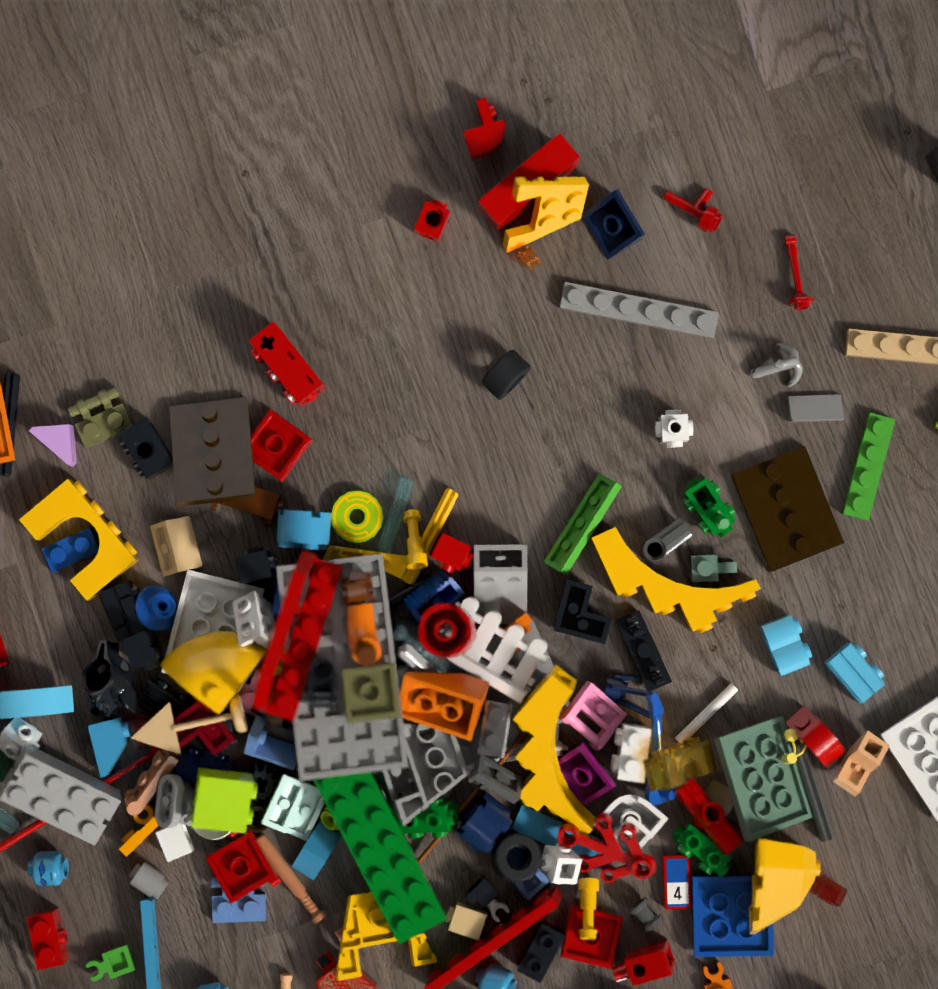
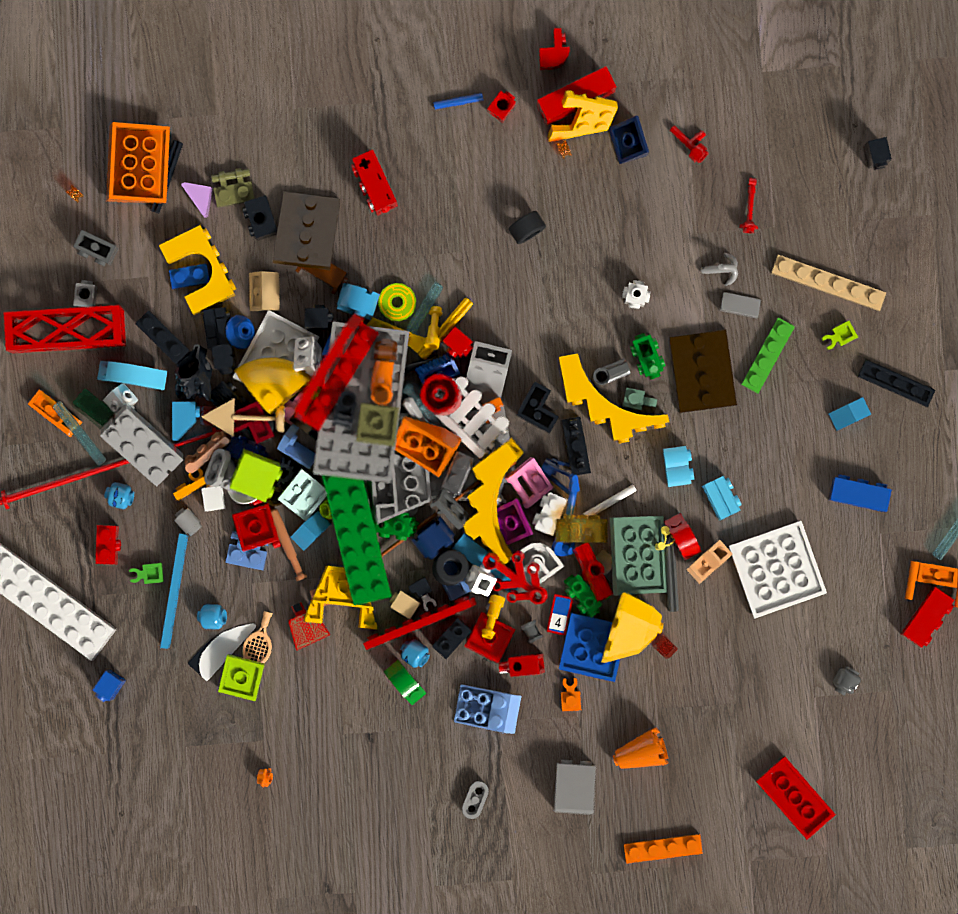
camera: 10 degrees right, 0 degrees up
(54, 641) = (162, 337): none -> black brick
(278, 445) = (354, 237): red plate -> none
(373, 228) = (458, 101): none -> blue piece
(582, 524) = (555, 346): bright green plate -> none
(639, 310) = (632, 205): light grey plate -> none

